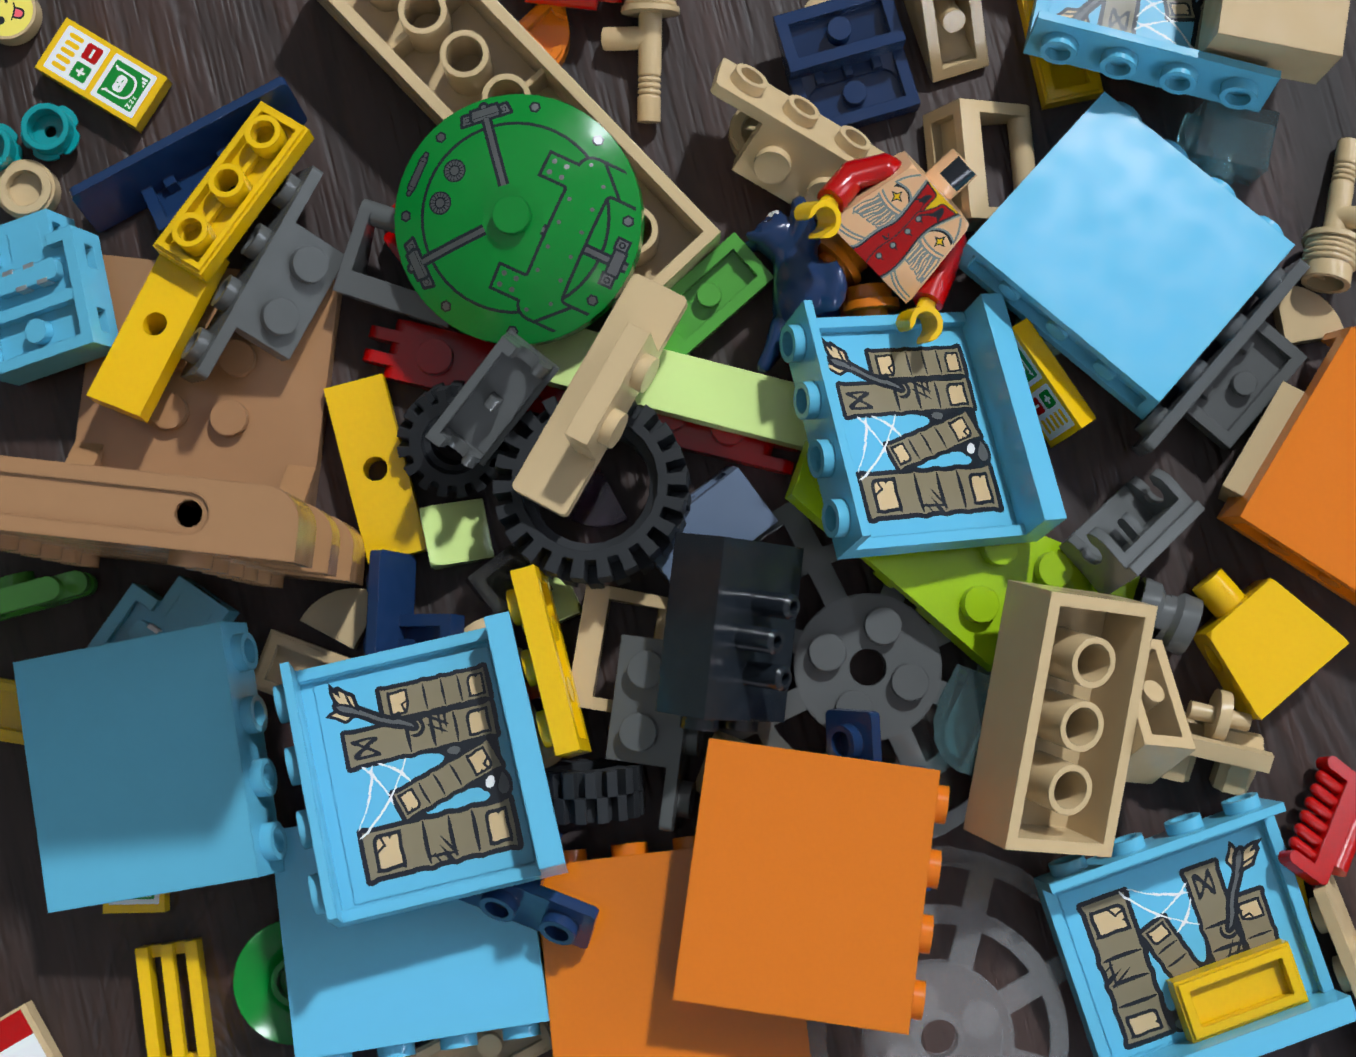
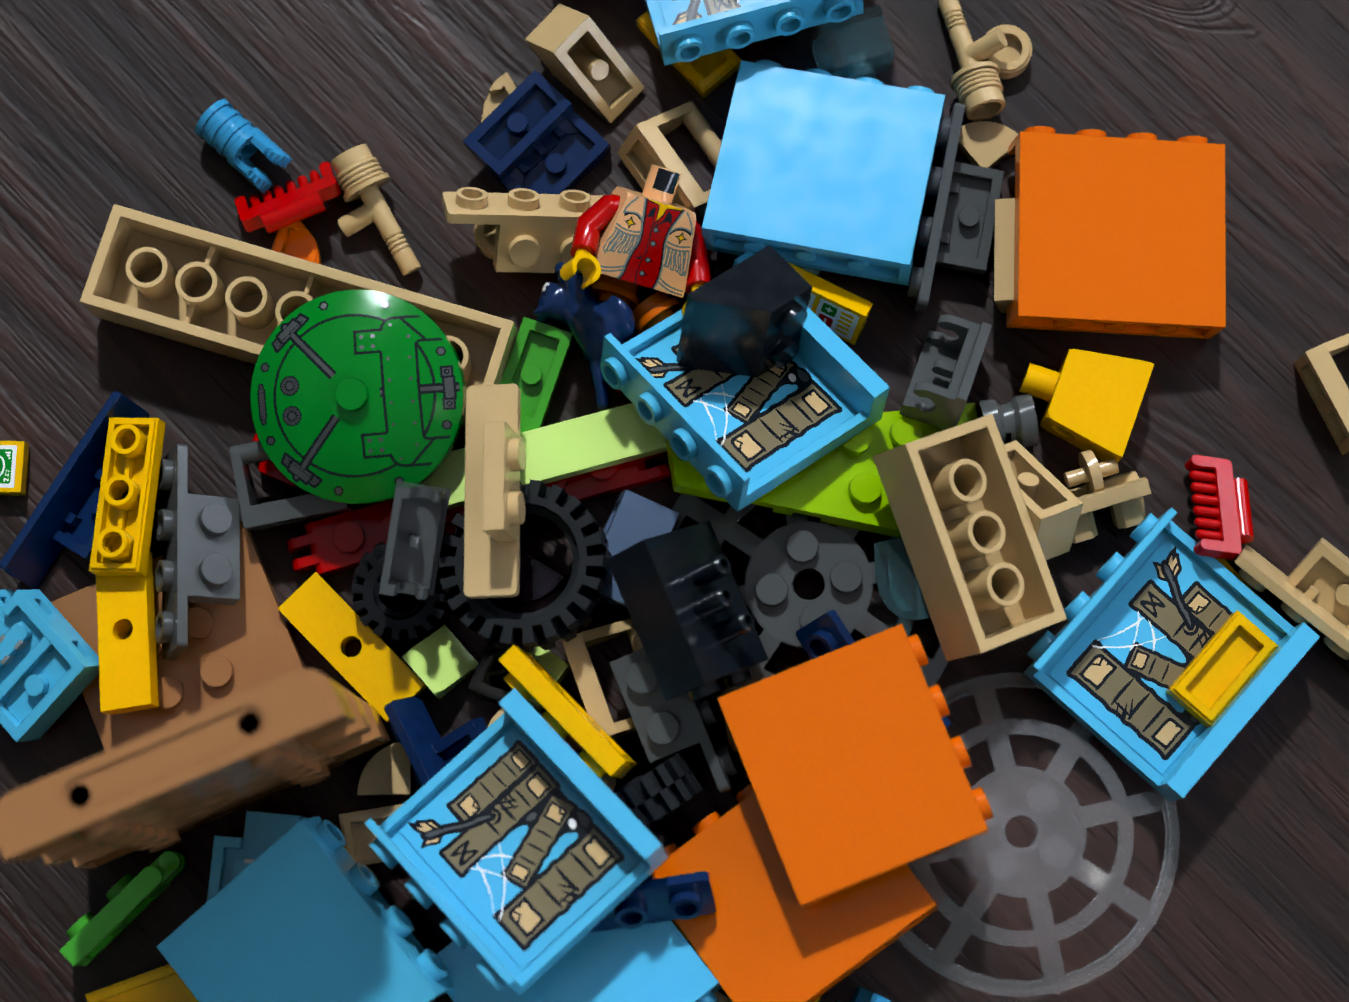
camera: 20 degrees left, 5 degrees down
(960, 362) = (745, 318): none -> black slope

